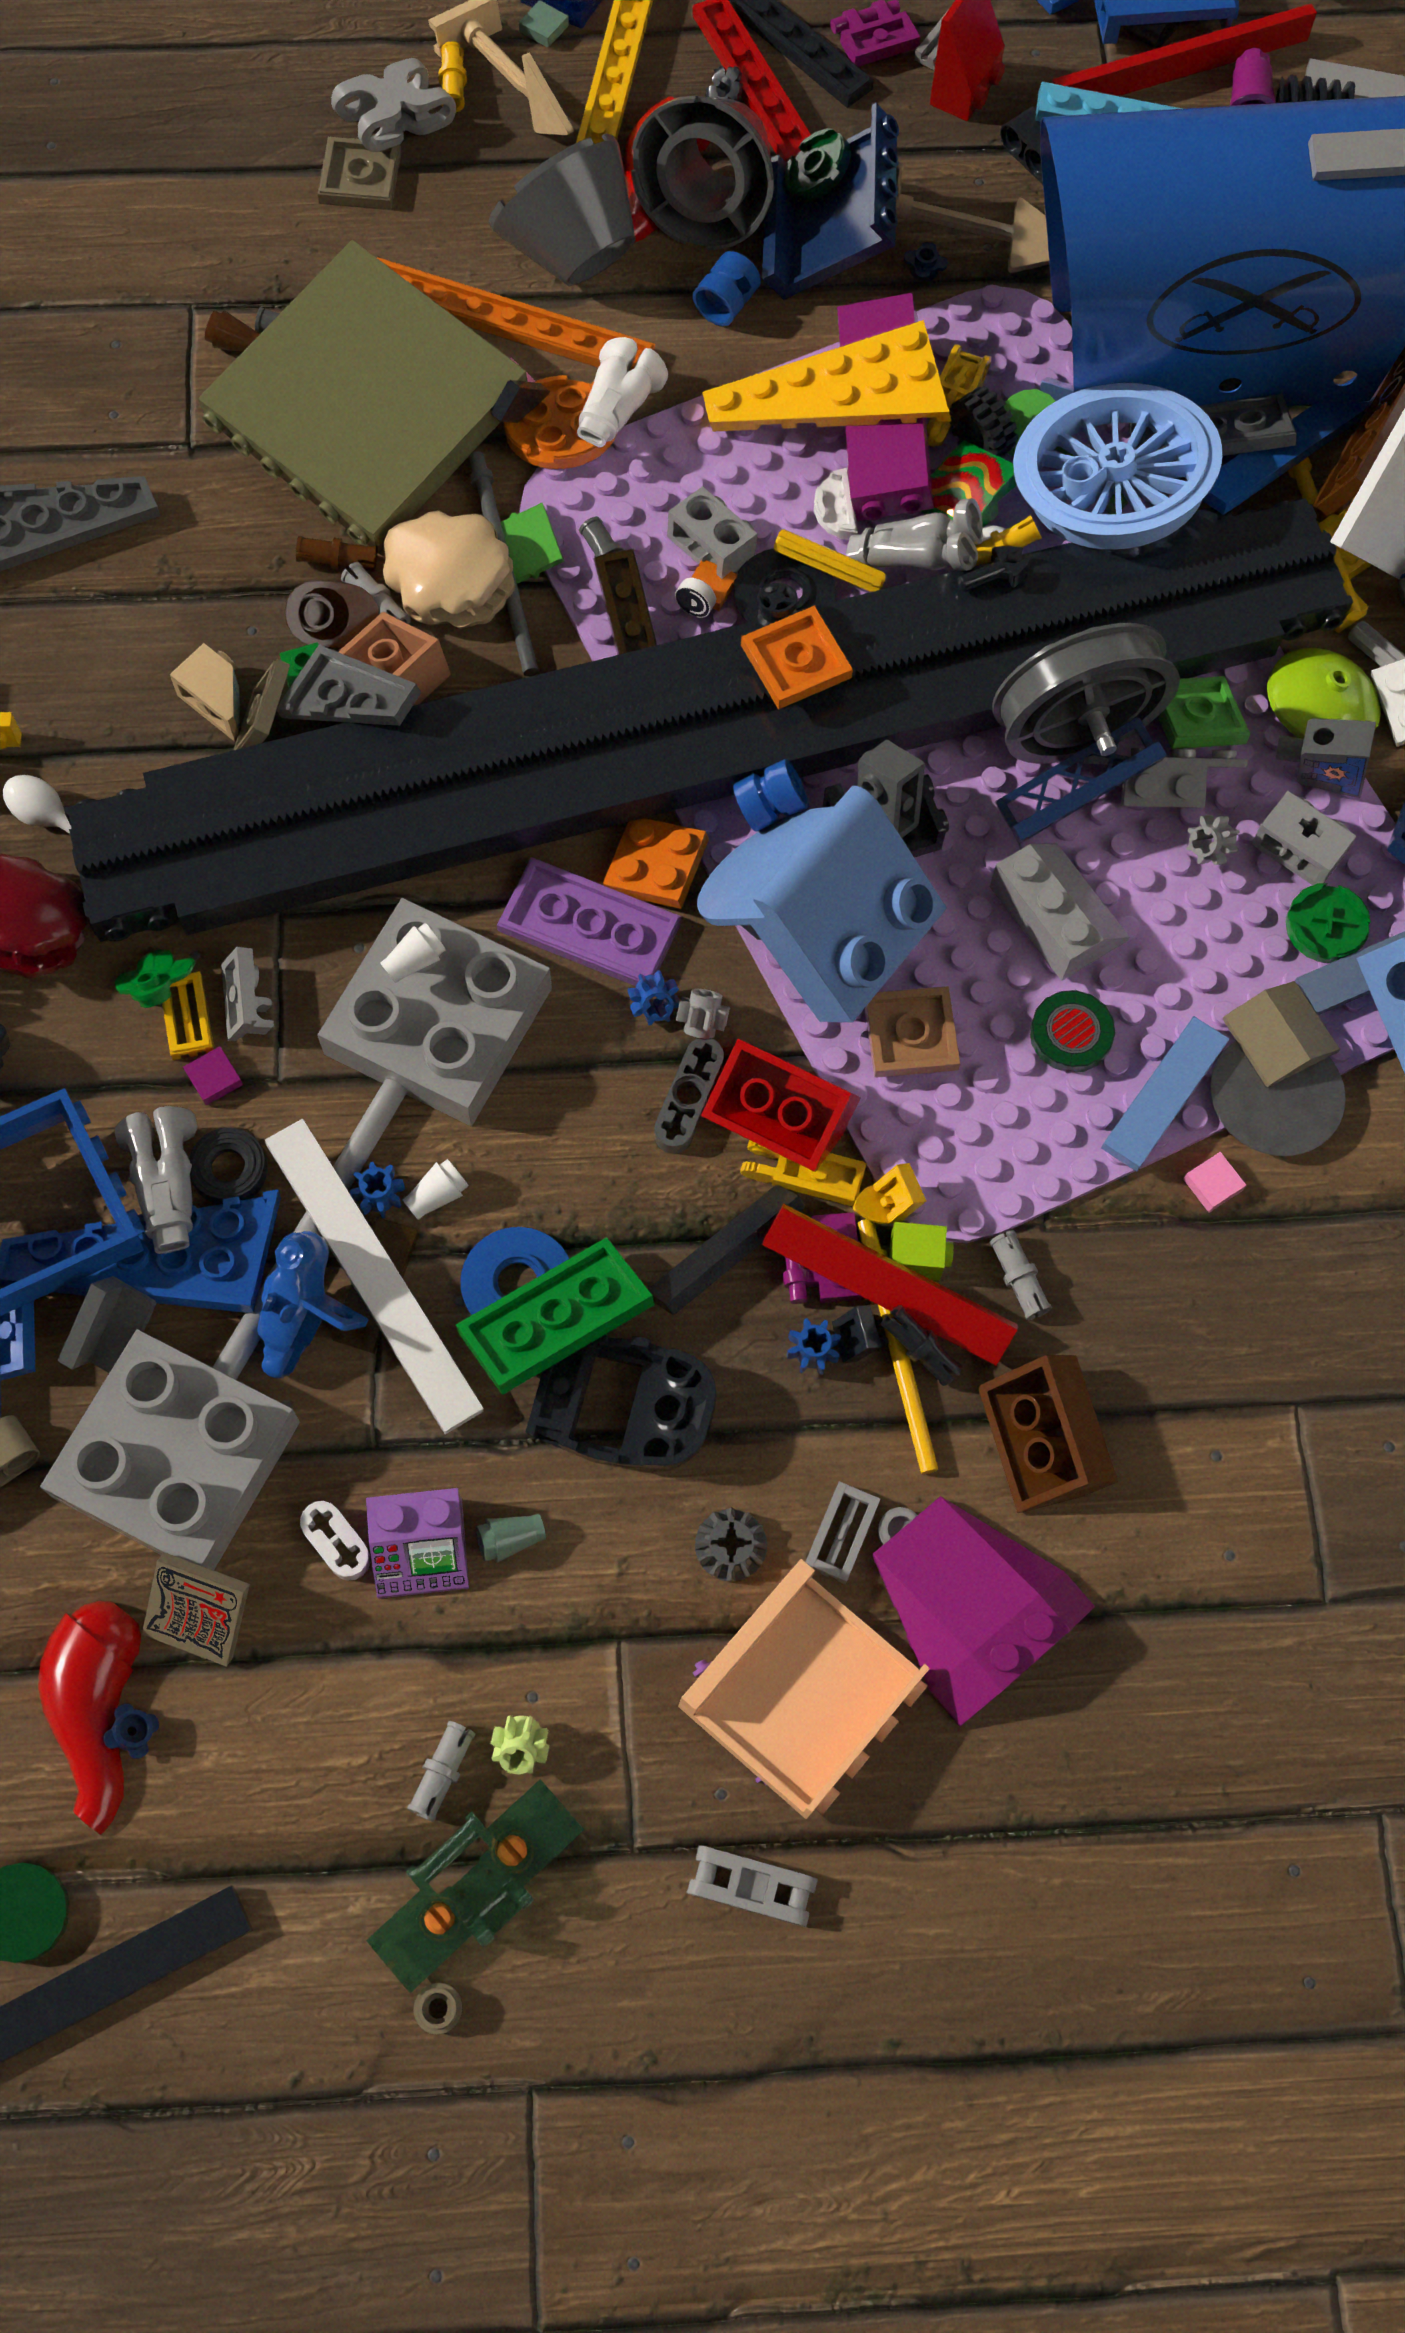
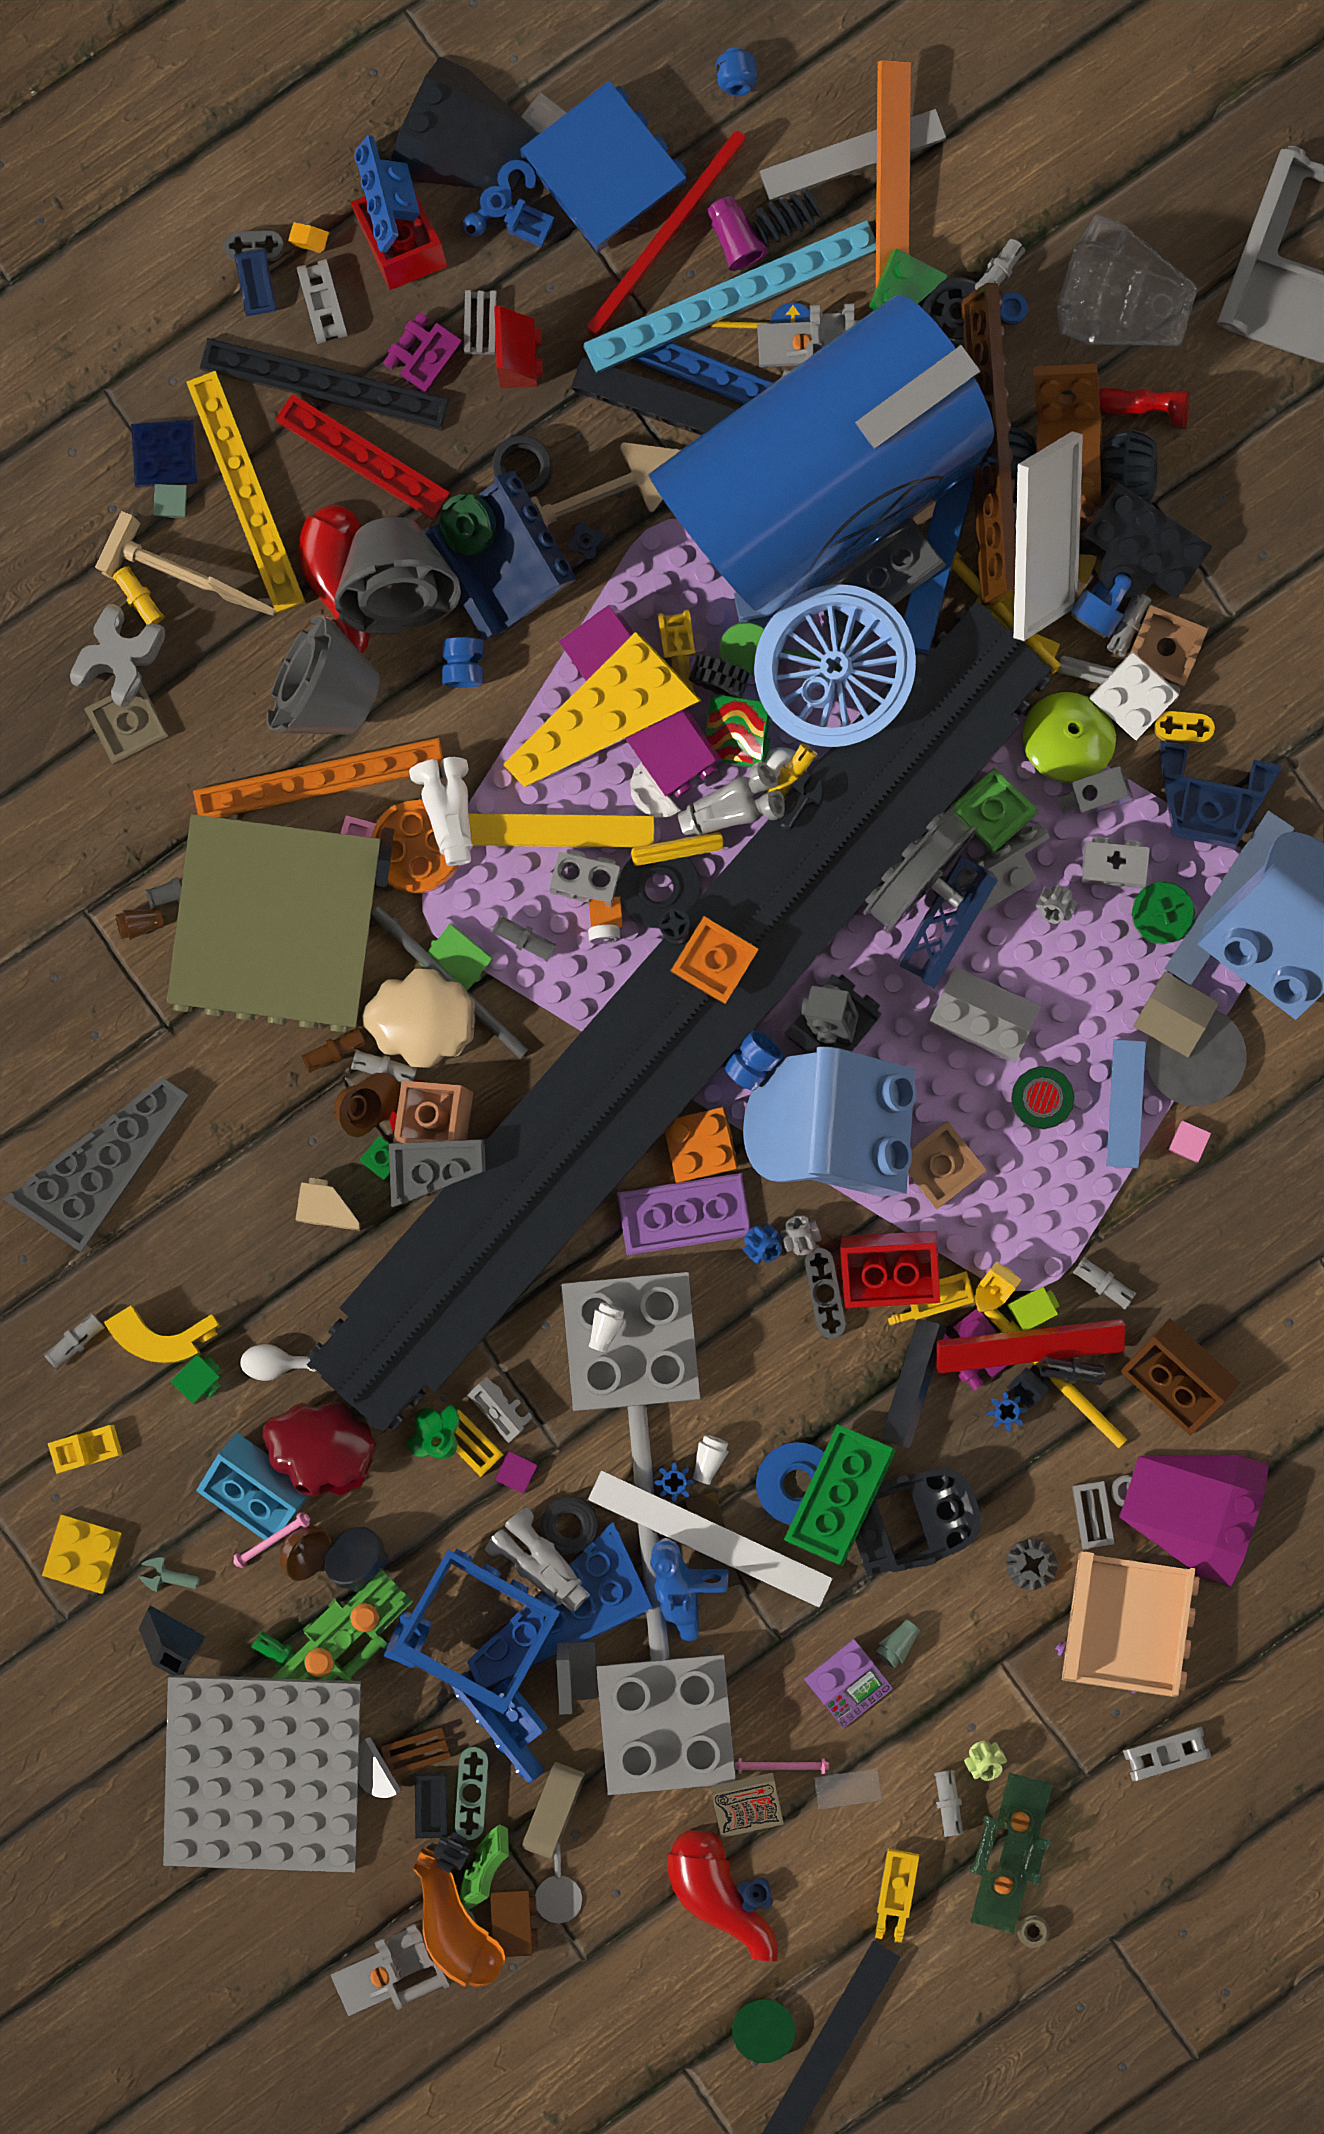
camera: 25 degrees left, 15 degrees up
(226, 1562) = (782, 1765): none -> bright pink axle
(262, 706) = (375, 1208): dark tan tile -> none
(302, 1841) = (896, 1890): none -> yellow hinge
(326, 1546) = (794, 1719): white beam -> none
(332, 1673) = (848, 1788): none -> clear tile
(625, 601) = (566, 976): dark brown tile -> none
(695, 469) = (561, 830): none -> yellow tile
(726, 83) = (345, 478): black plant -> none
(925, 150) = (535, 446): none -> black tyre

